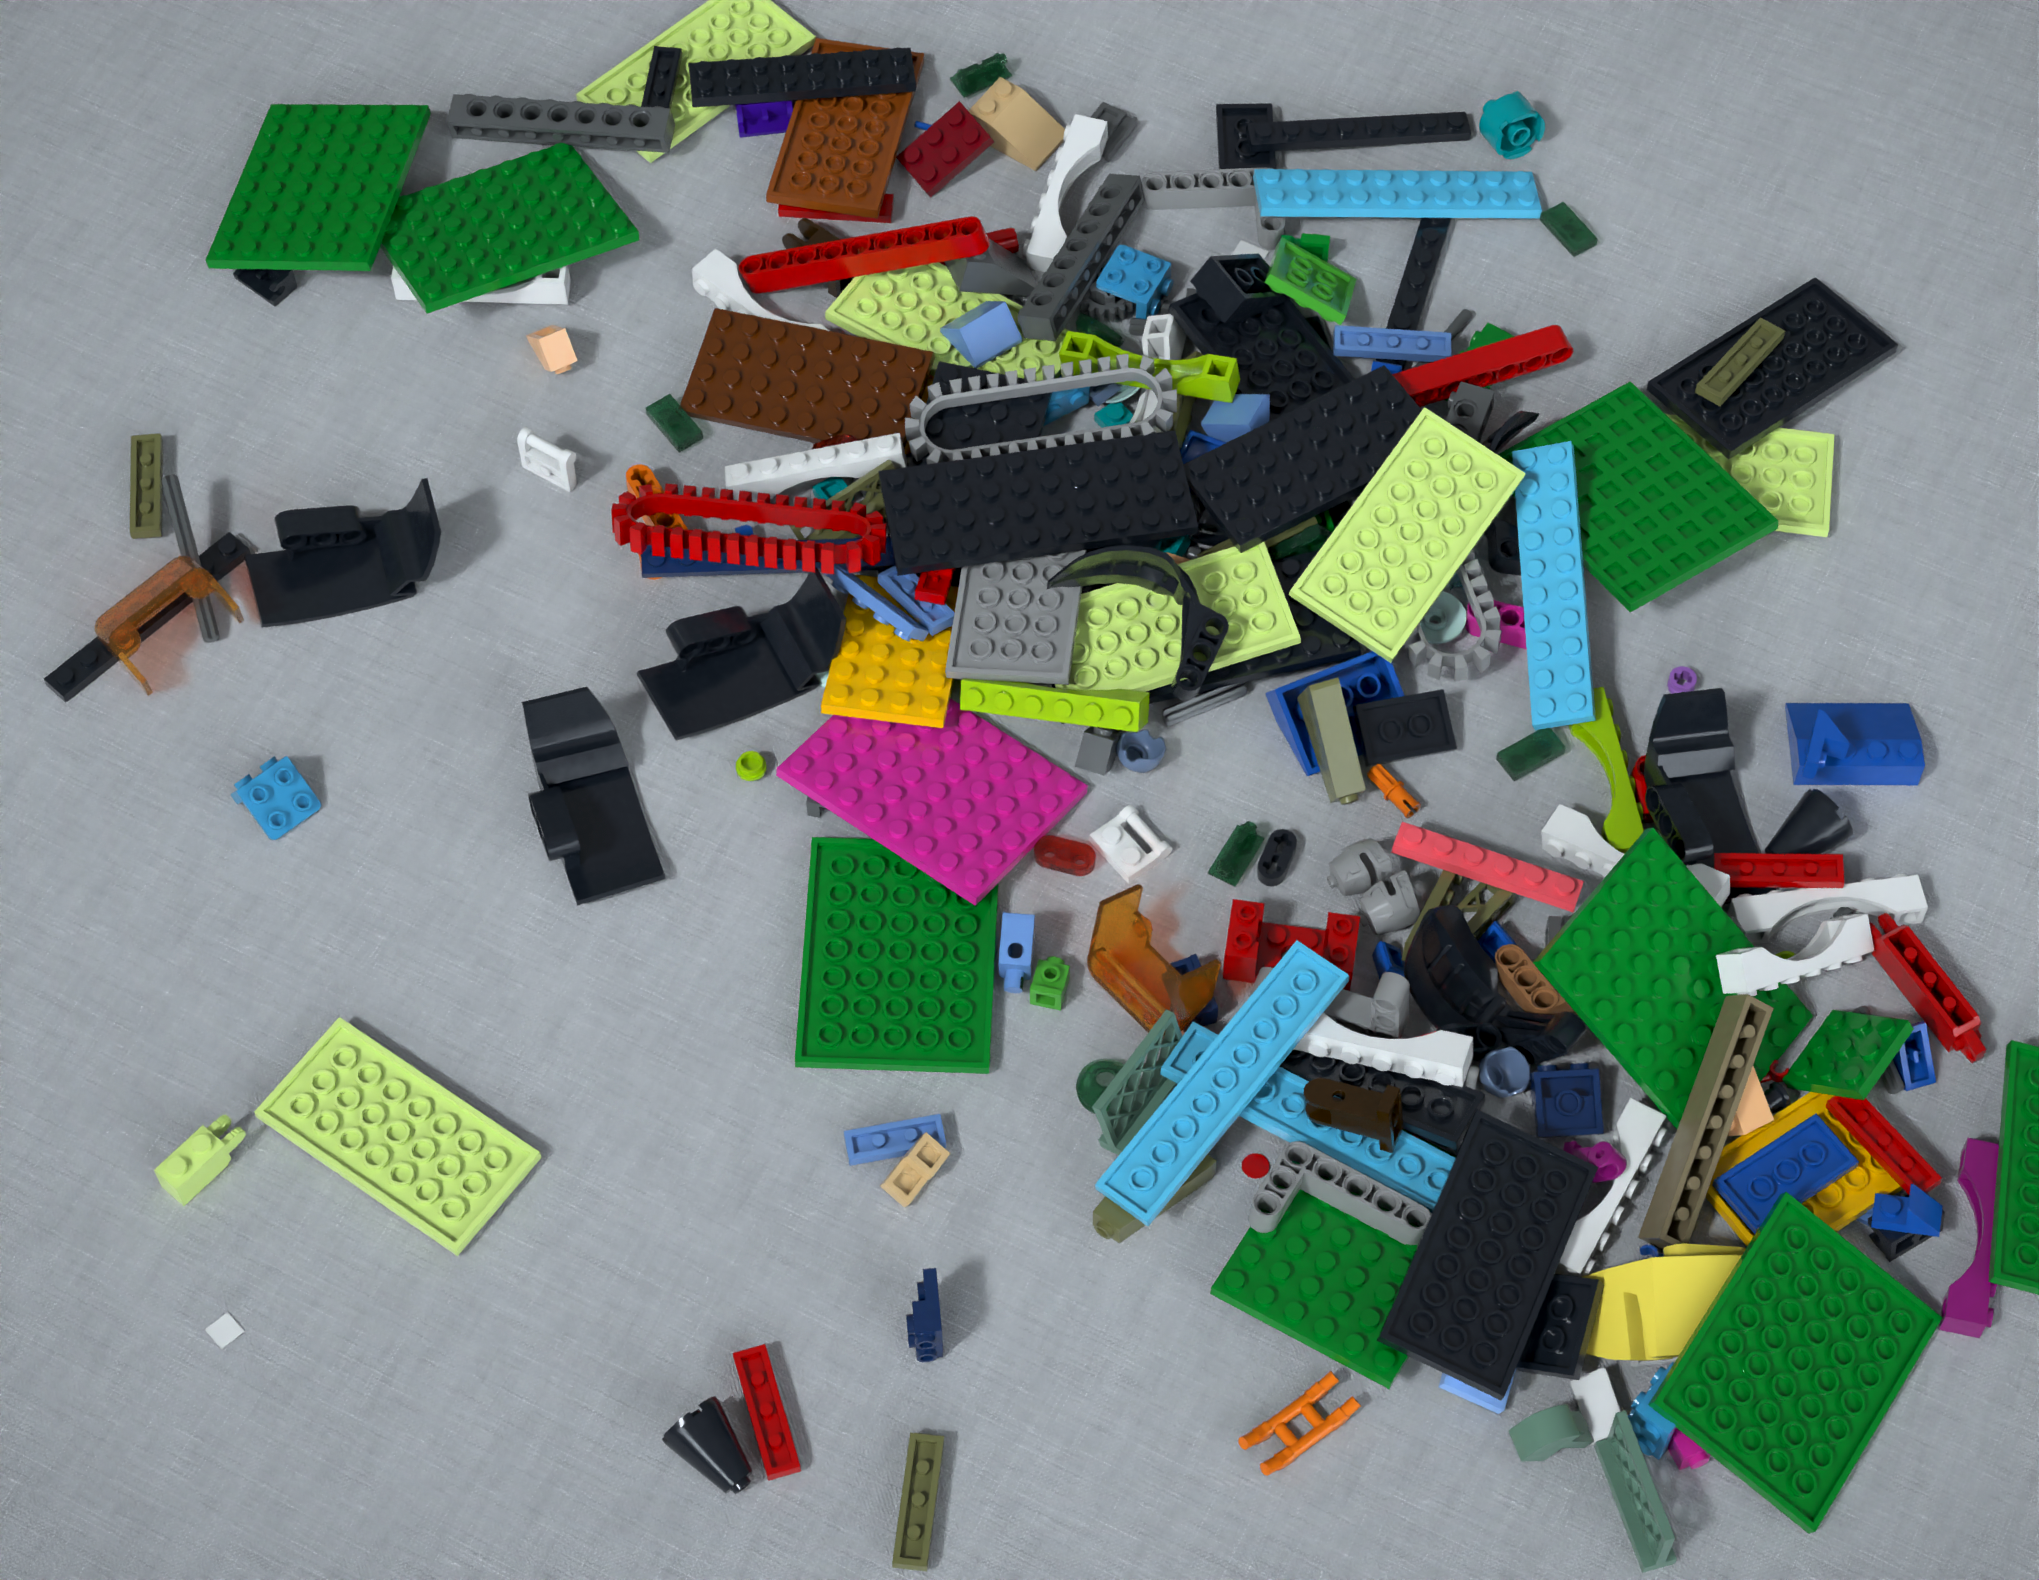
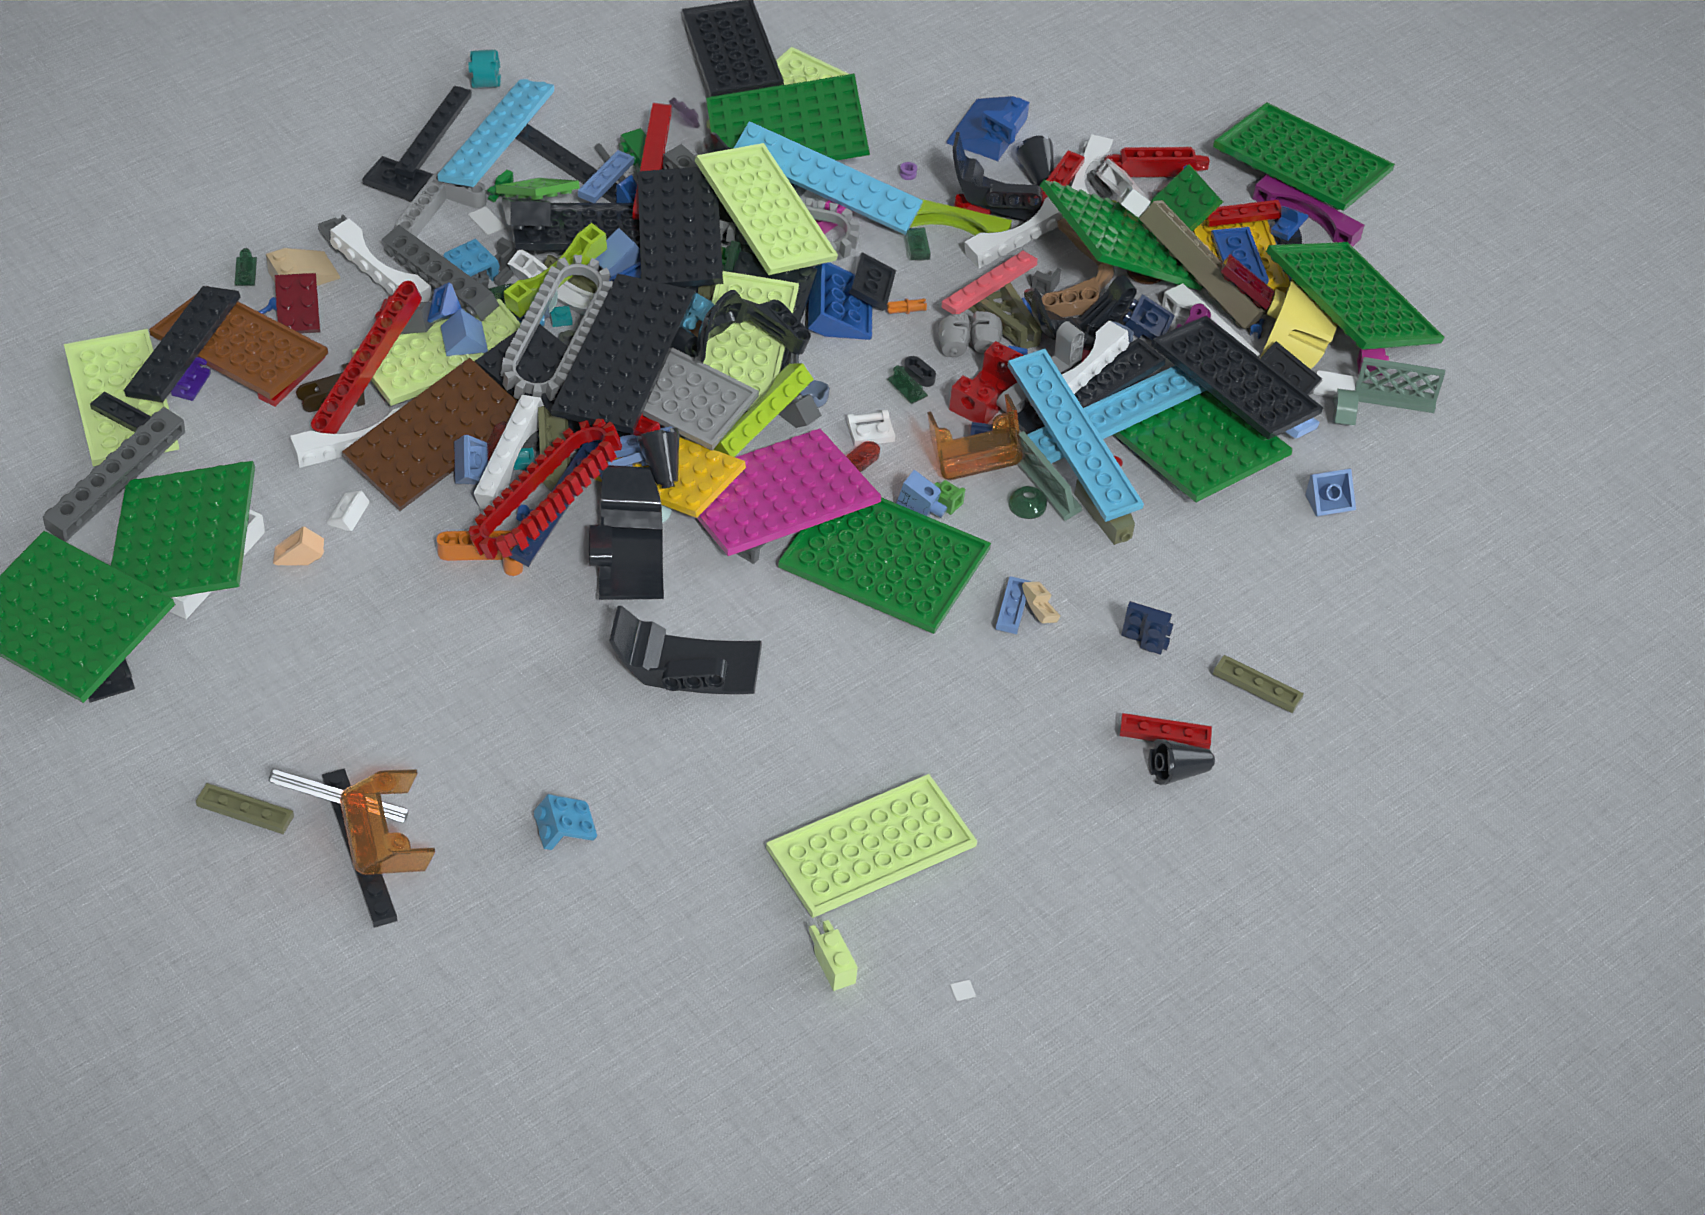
camera: 70 degrees left, 10 degrees down
(344, 560) = (407, 707): black beam -> none
(547, 459) = (399, 585): white plate -> none
(648, 366) = (349, 510): none -> white slope
(674, 423) = (409, 513): clear green plate -> none
(751, 766) = (703, 573): lime plate -> none
(779, 435) = (470, 460): none -> medium blue slope
(872, 620) = (661, 455): none -> black cone
(1007, 284) = (443, 303): none -> blue slope
(1190, 547) = (697, 311): none -> medium azure plate
(1302, 1405) = (1292, 496): orange piece -> none
(1332, 740) = (867, 305): slope -> none
(1336, 1193) = (1149, 427): light grey beam -> none
(1353, 1476) = (1331, 492): none -> medium blue slope
(1358, 1111) = (1127, 384): dark brown piece -> none
(1568, 229) = (572, 83): clear green plate -> none
(1587, 376) = (689, 116): none -> clear purple slope
(1651, 1428) = (1349, 358): dark azure bracket -> none
(1702, 1194) = (1247, 282): none -> dark red plate
(1740, 361) = (727, 51): olive plate -> none

